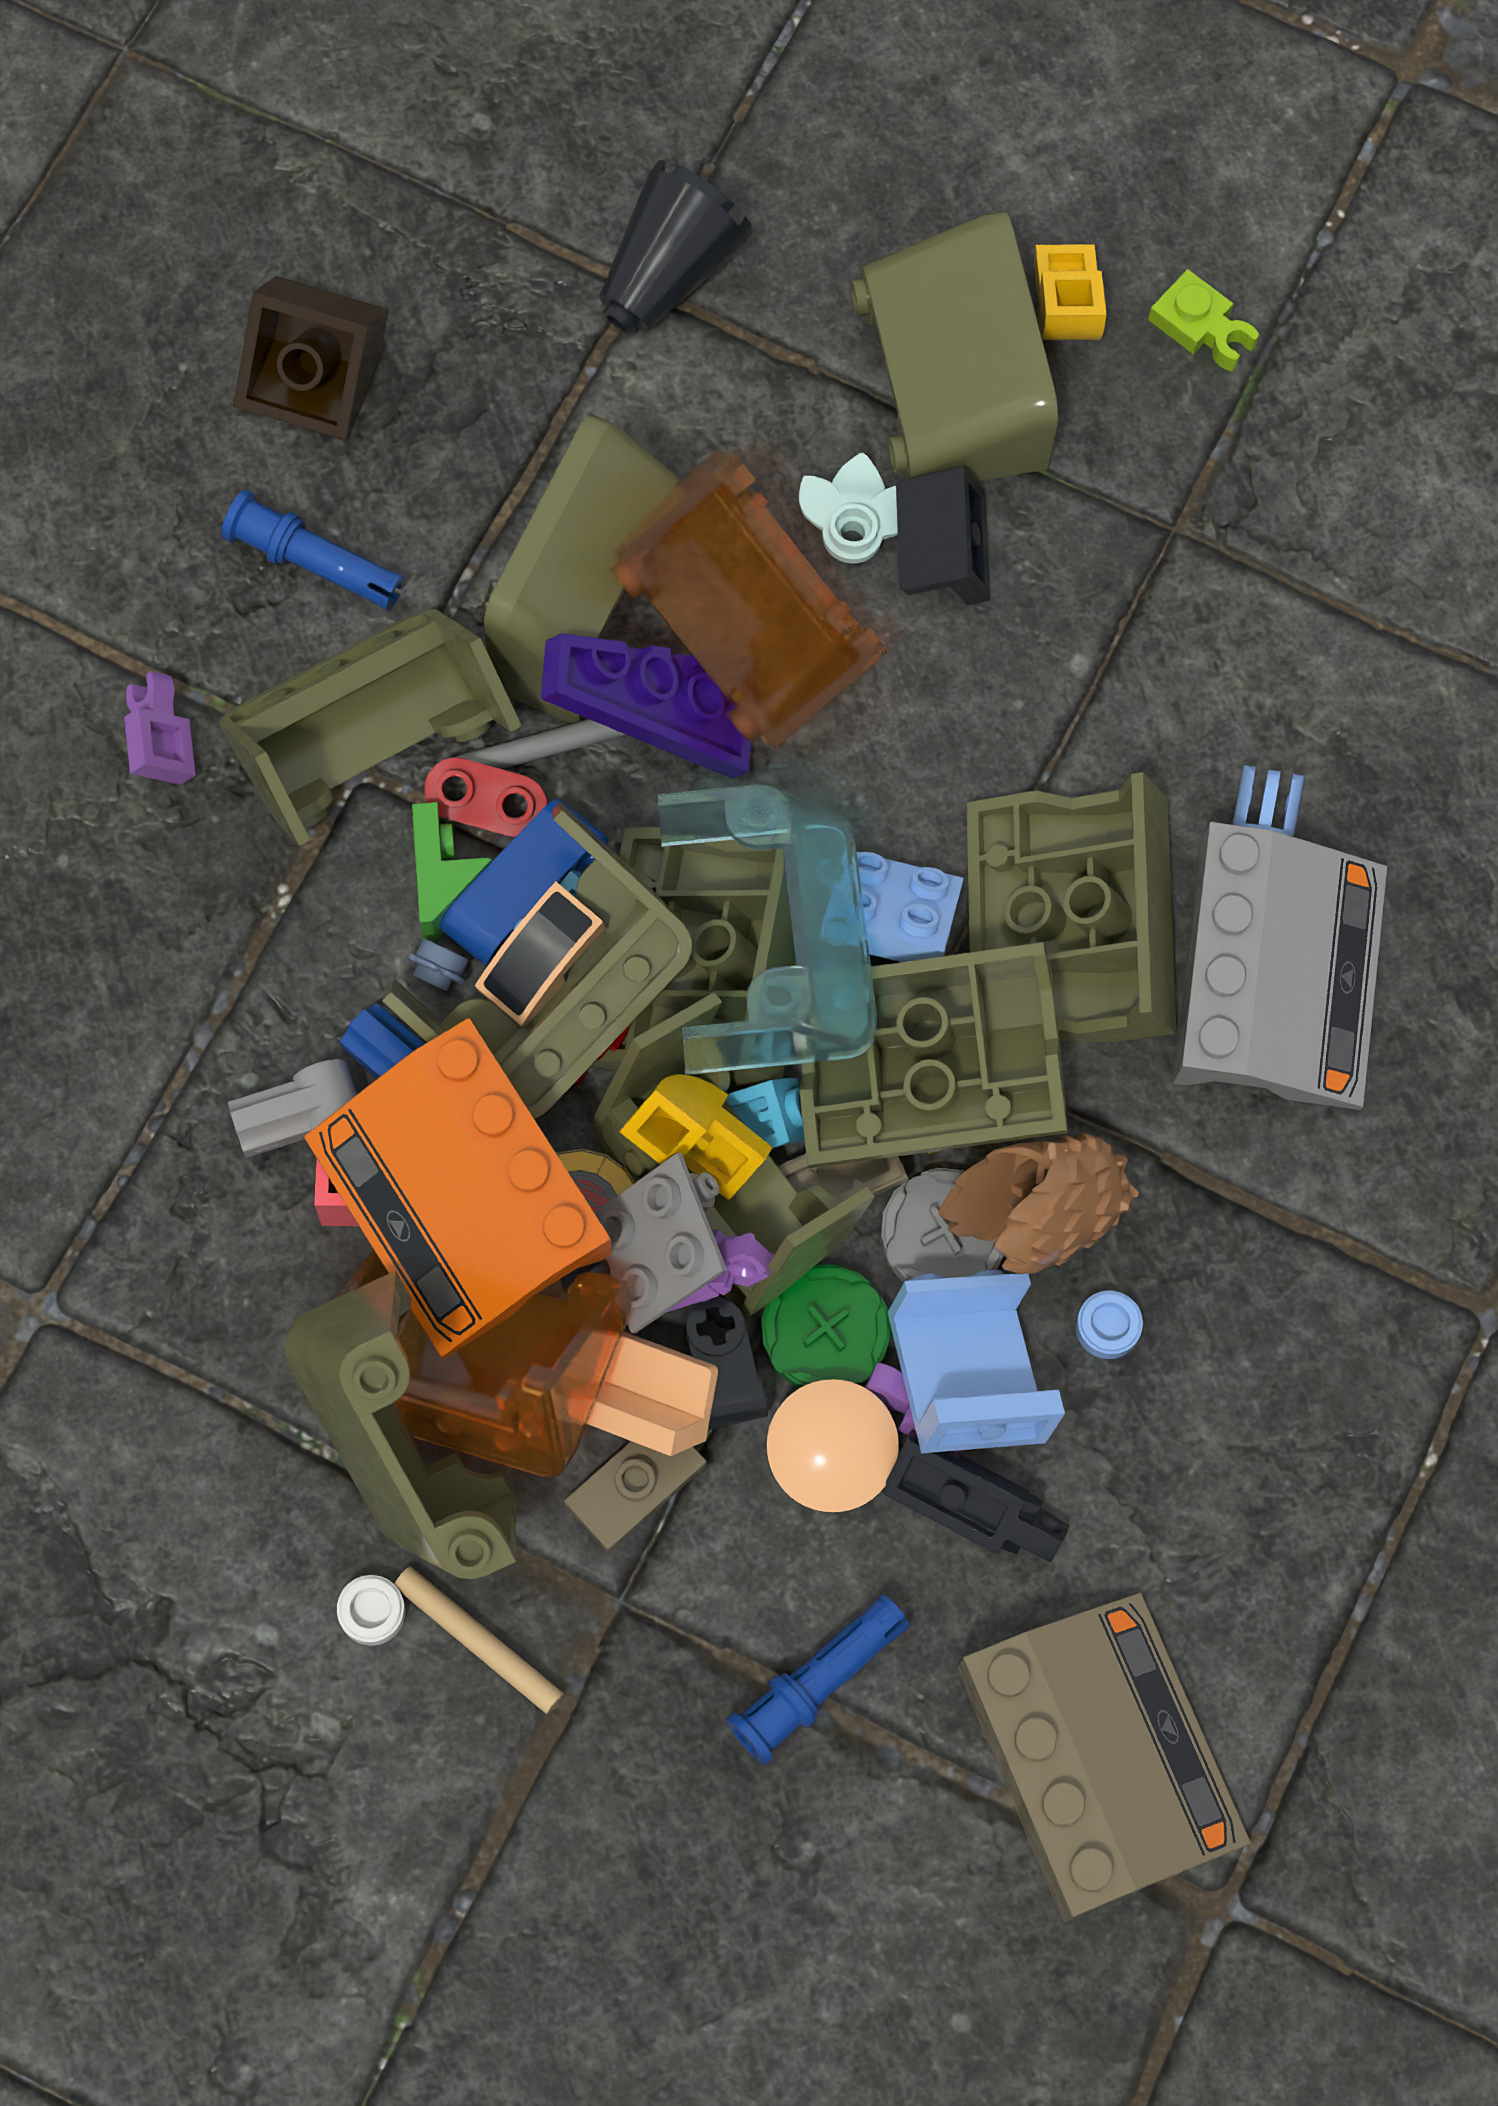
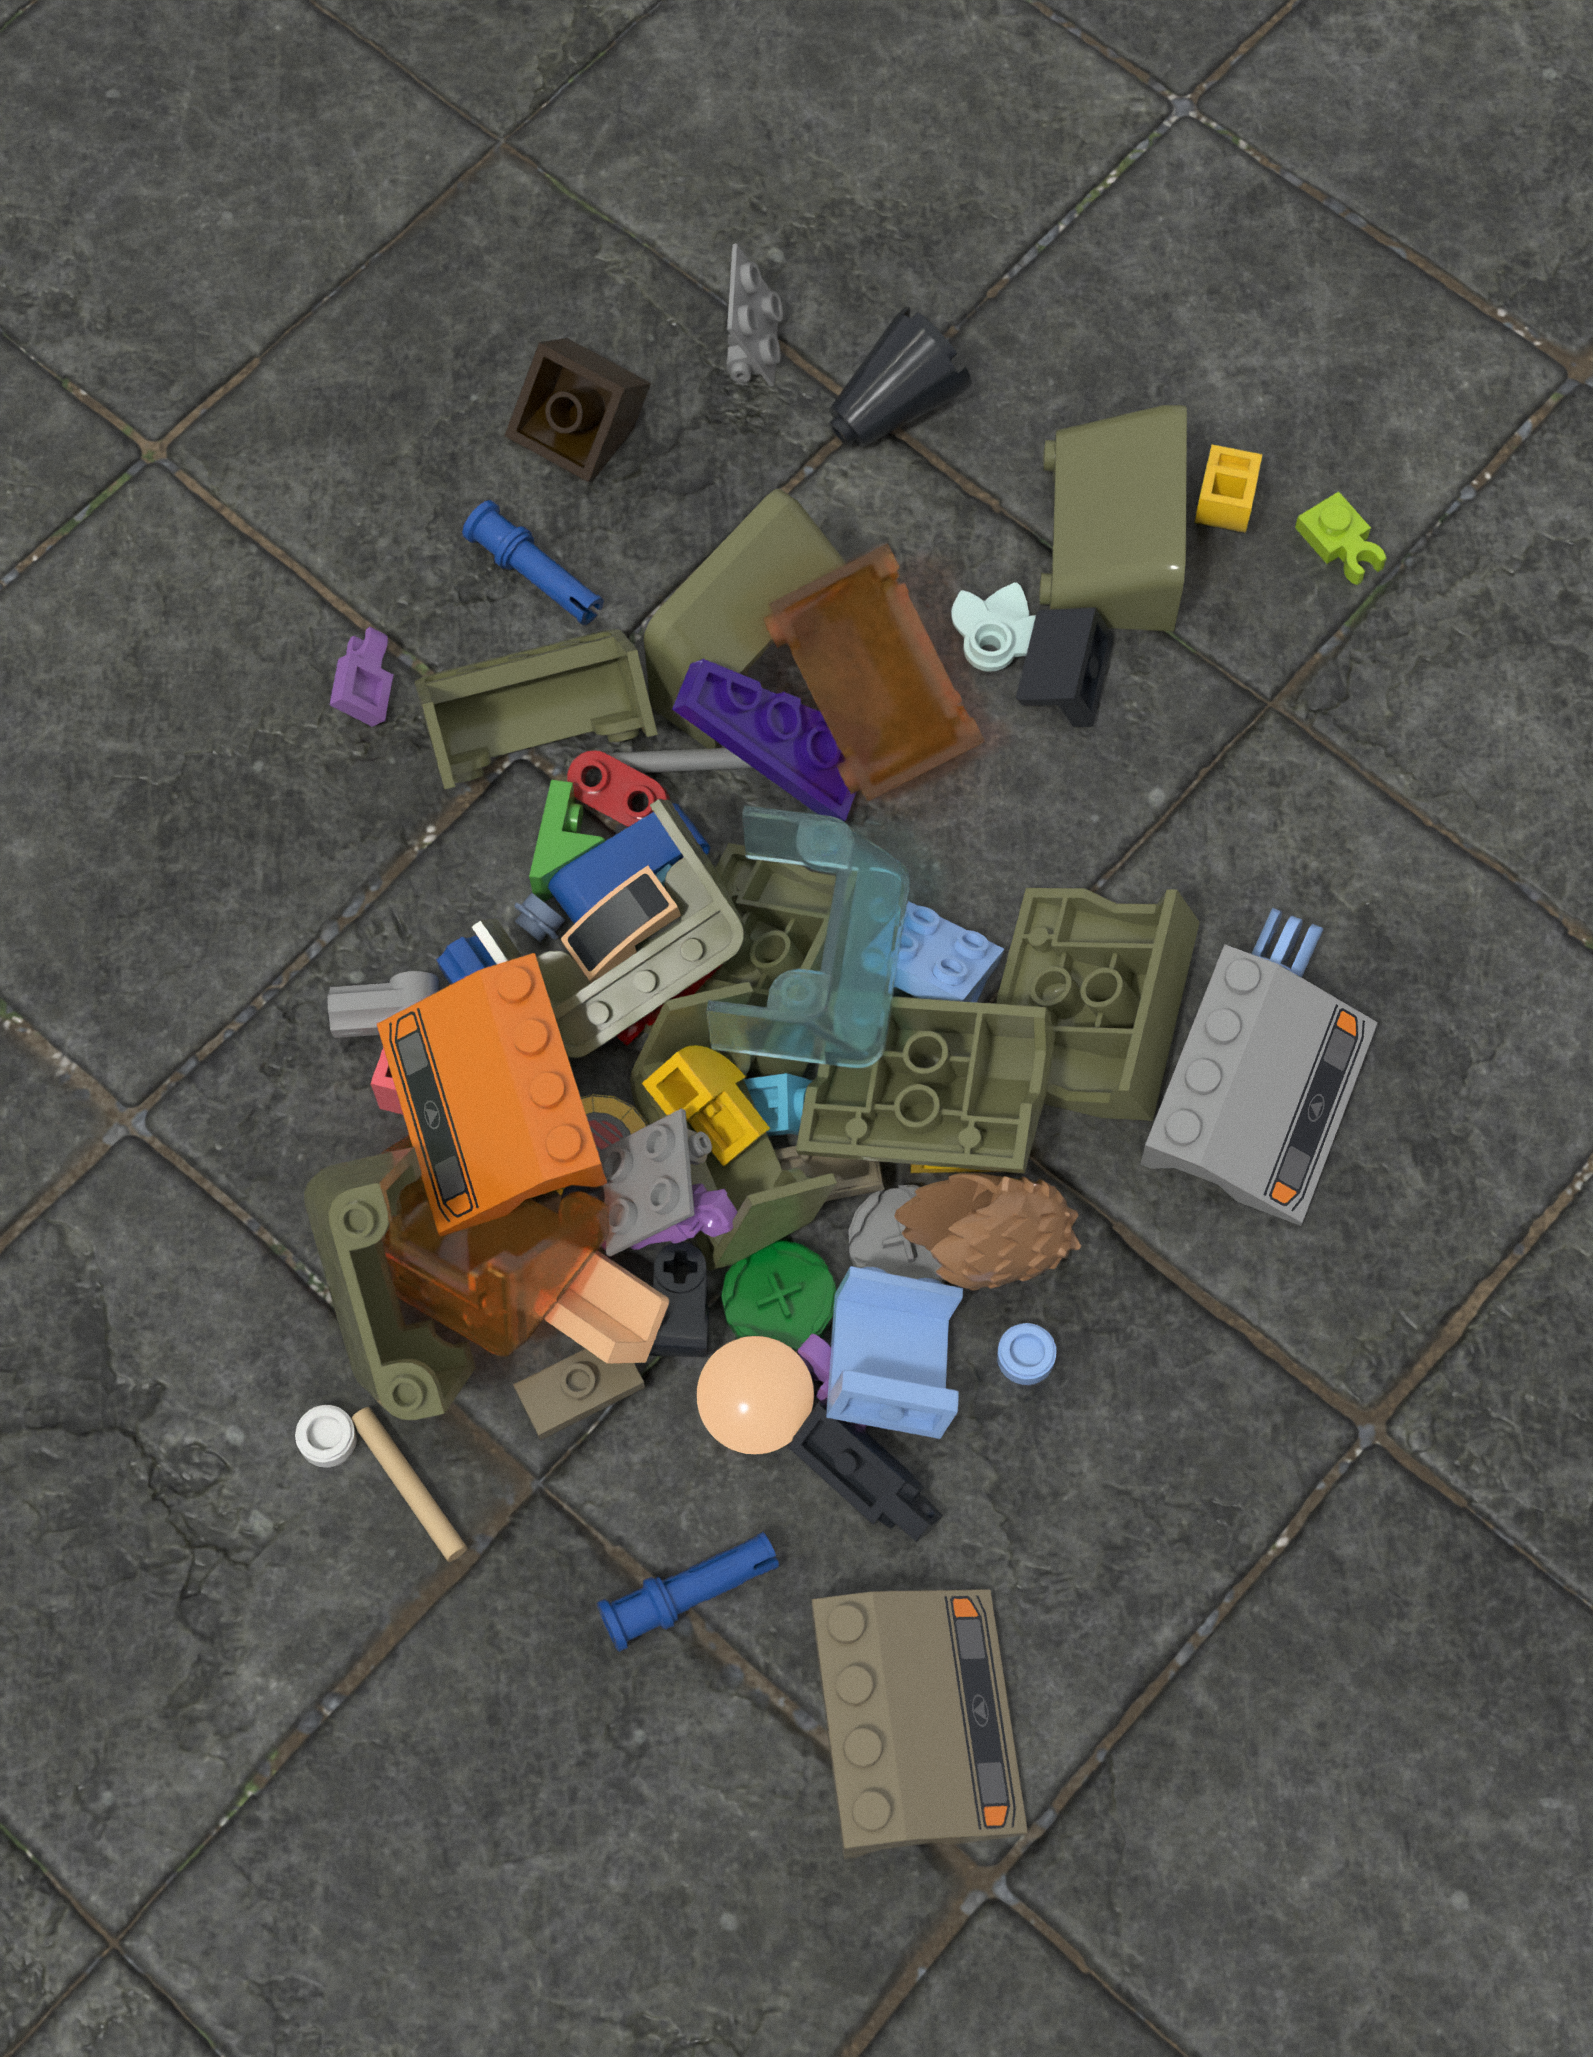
camera: 20 degrees right, 5 degrees down
(482, 213) = (751, 322): none -> light grey hinge

